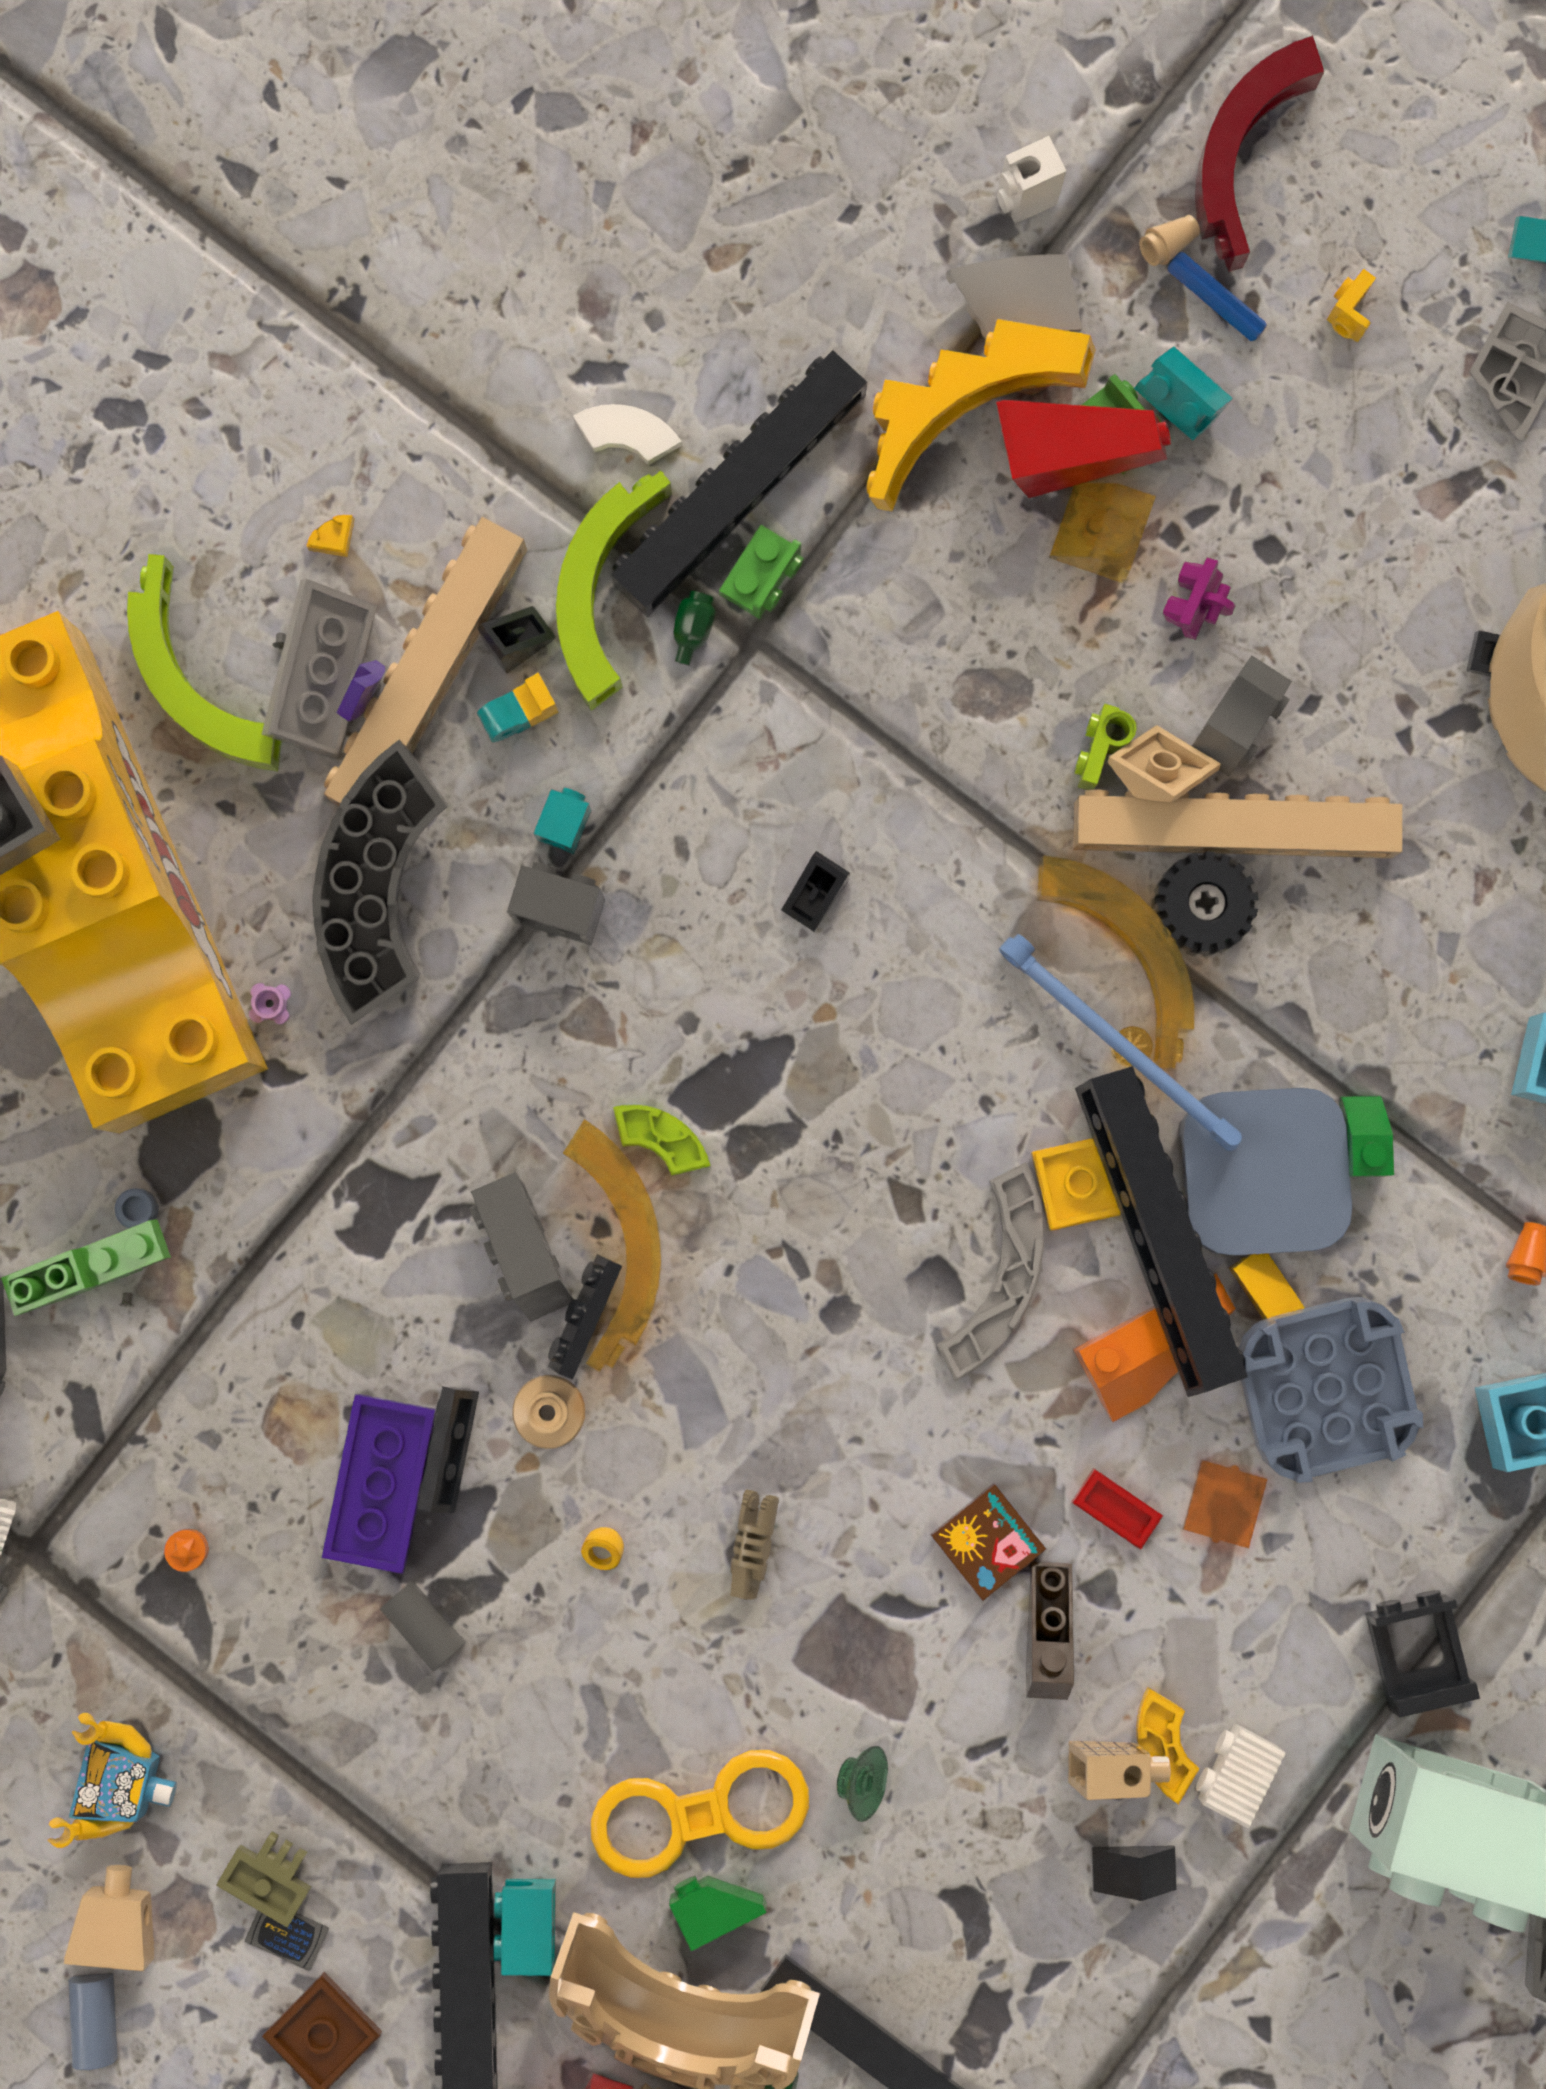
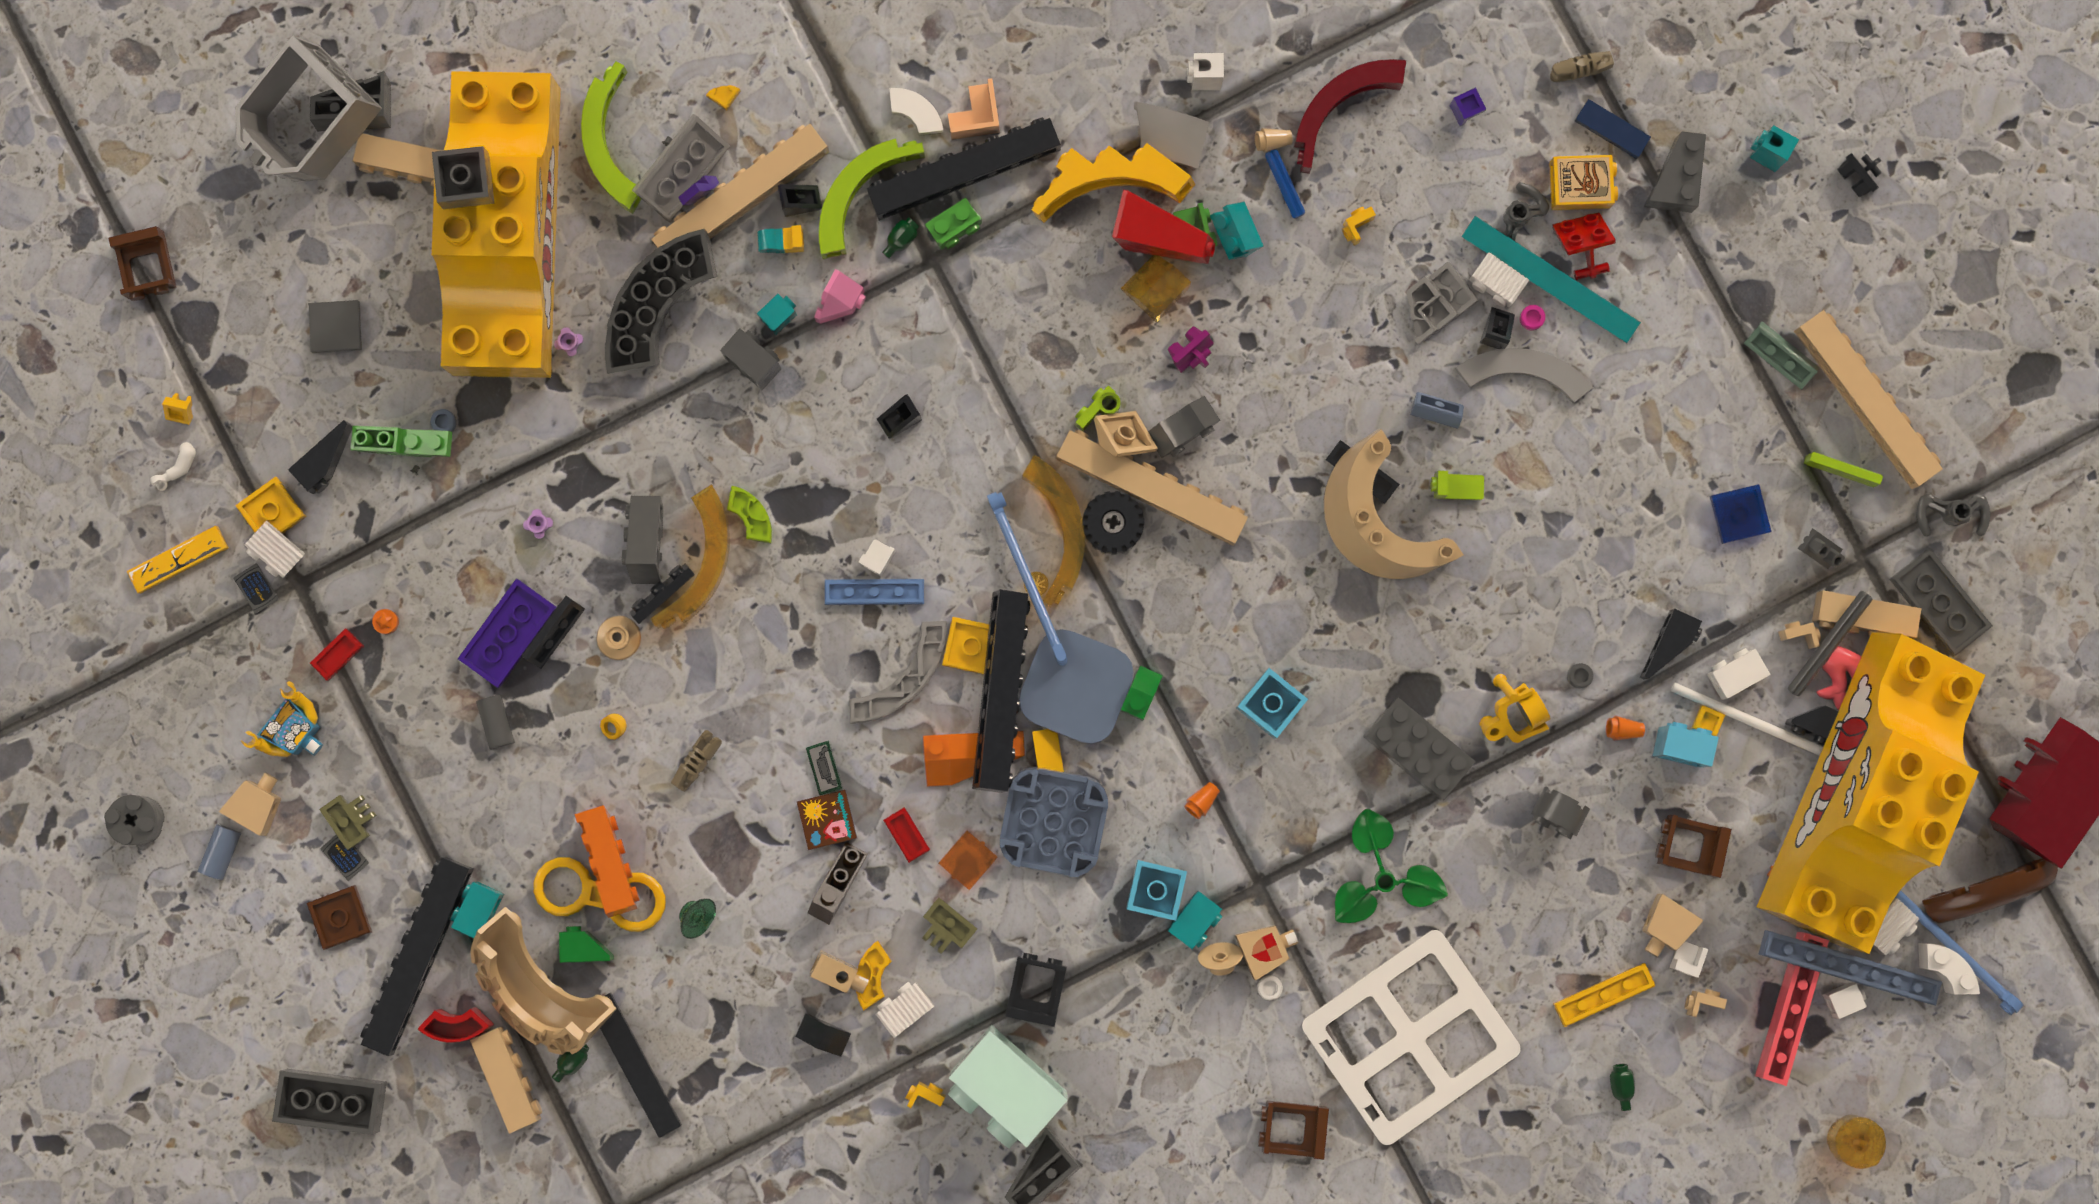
camera: 25 degrees right, 0 degrees up
(135, 1634) = (336, 654): none -> red tile
(338, 1301) = (530, 523): none -> lavender plate
(646, 754) = (840, 298): none -> bright pink slope
(694, 1763) = (607, 861): none -> orange wedge
(731, 395) = (982, 117): none -> light nougat panel
(880, 1114) = (877, 557): none -> white panel
(898, 1167) = (874, 592): none -> medium blue tile
(948, 1466) = (824, 768): none -> slope
(1243, 1619) = (947, 926): none -> olive hinge
(1337, 1884) = (932, 1093): none -> yellow bracket
(1429, 65) = (1467, 106): none -> dark purple panel

